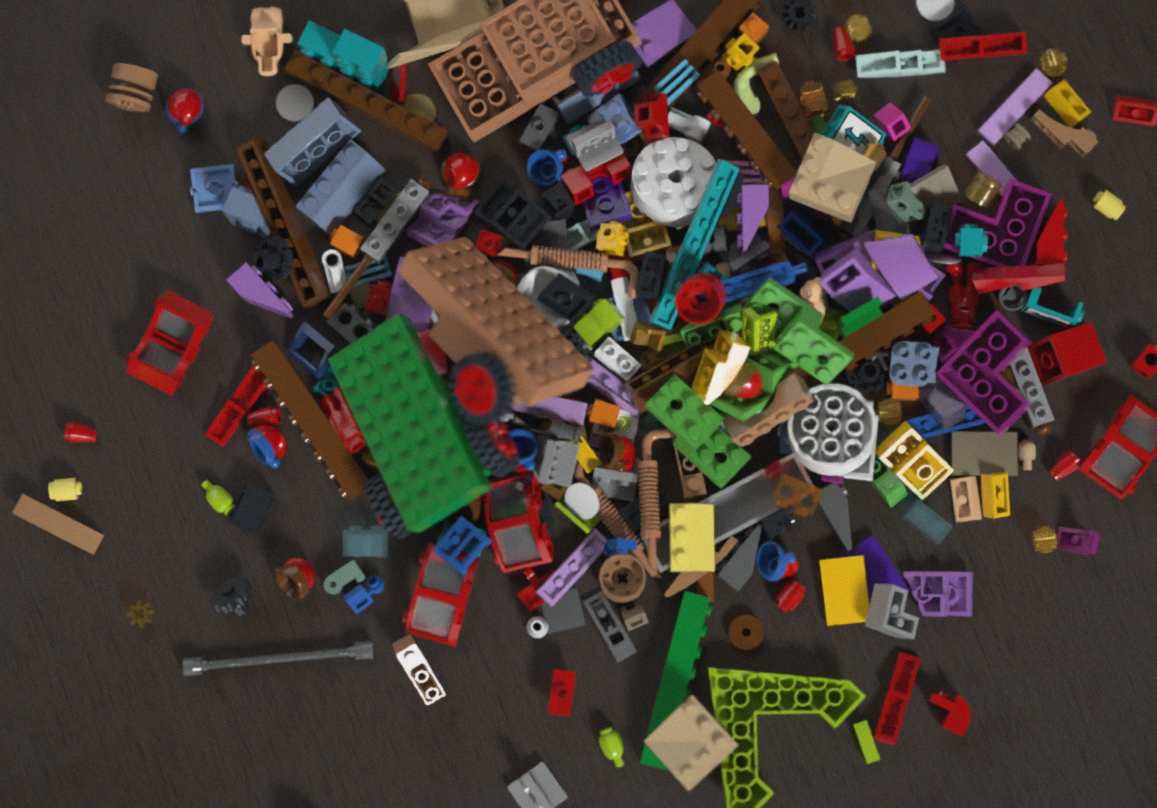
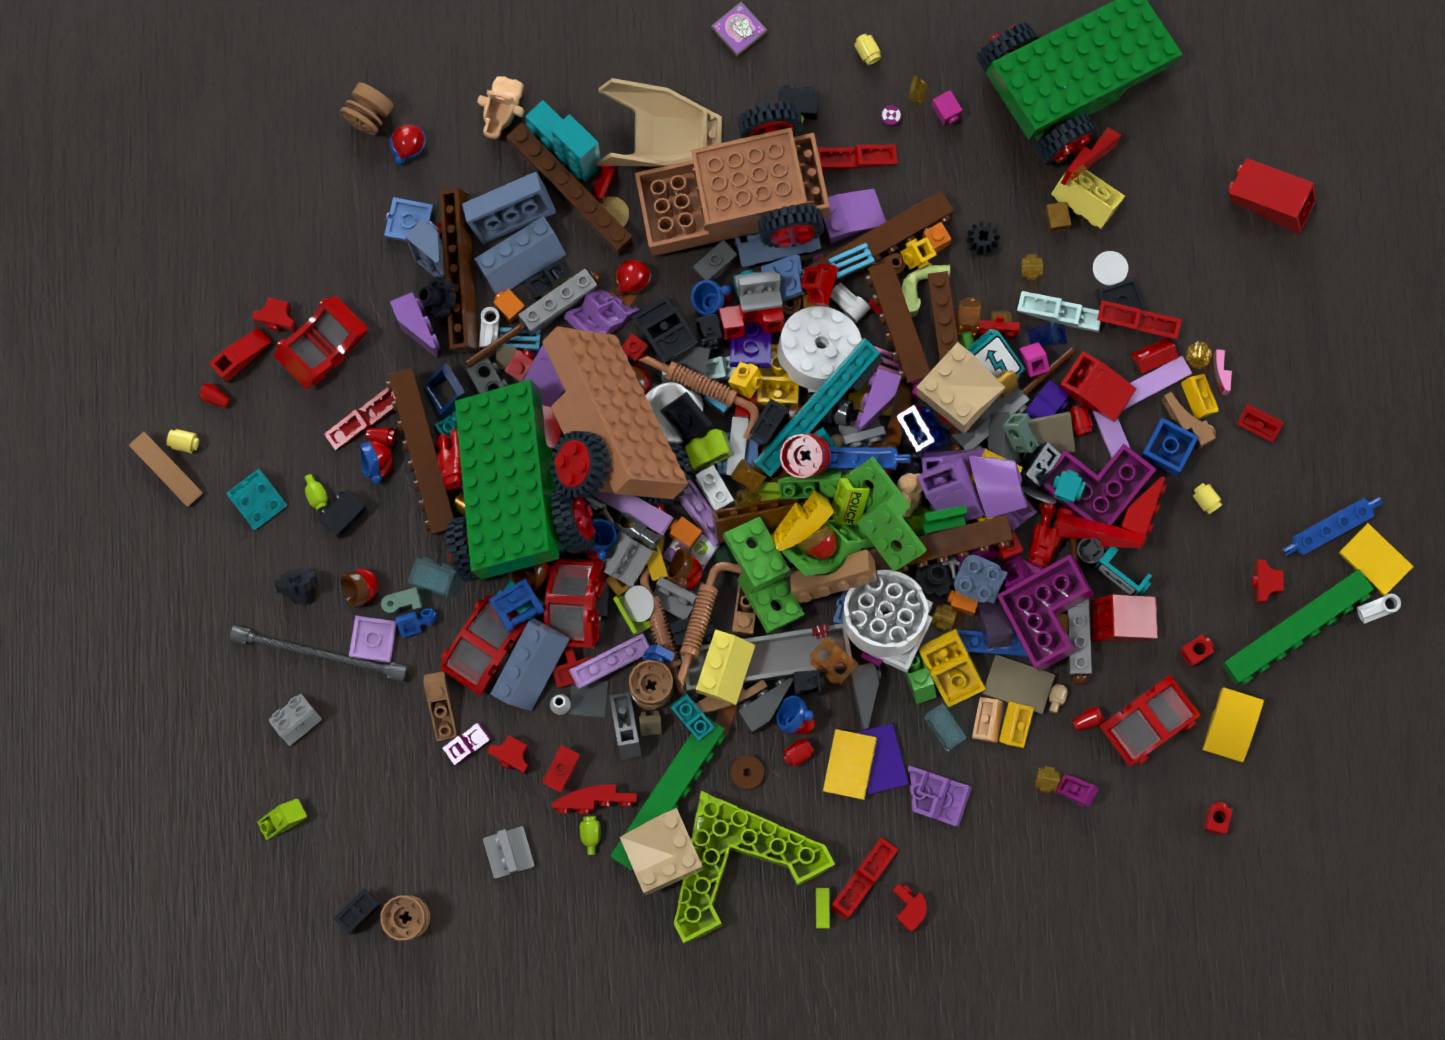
camera: 20 degrees right, 5 degrees down
(91, 382) = (239, 354): none -> red slope
(113, 331) = (275, 316): none -> red brick
(141, 621) = (215, 571): clear yellow gear -> none
(160, 523) = (256, 499): none -> teal bracket
(277, 732) = (294, 719): none -> light grey bracket
(294, 102) = (506, 169): white sticker -> none
(327, 625) = (372, 639): none -> lavender tile
(458, 698) = (467, 743): none -> slope
(495, 599) = (530, 665): none -> sand blue slope
(506, 694) = (510, 754): none -> red brick
(595, 714) = (585, 799): none -> red slope
(674, 597) = (692, 717): none -> teal slope
(843, 45) = (1013, 278): red cone -> none
(855, 100) = (1007, 329): none -> red plate
(887, 612) = (880, 795): light grey brick -> none
(895, 91) = (1047, 334): none -> clear blue bracket
(958, 167) = (1081, 421): none -> red brick
(965, 129) = (1097, 387): none -> red slope
(983, 189) = (1096, 446): clear yellow piece -> none
(1009, 76) = (1154, 355): none -> red slope
(1017, 136) = (1143, 410): dark tan wheel -> none
(1055, 166) = (1169, 447): none -> blue brick
(1084, 77) = (1222, 376): none -> bright pink slope

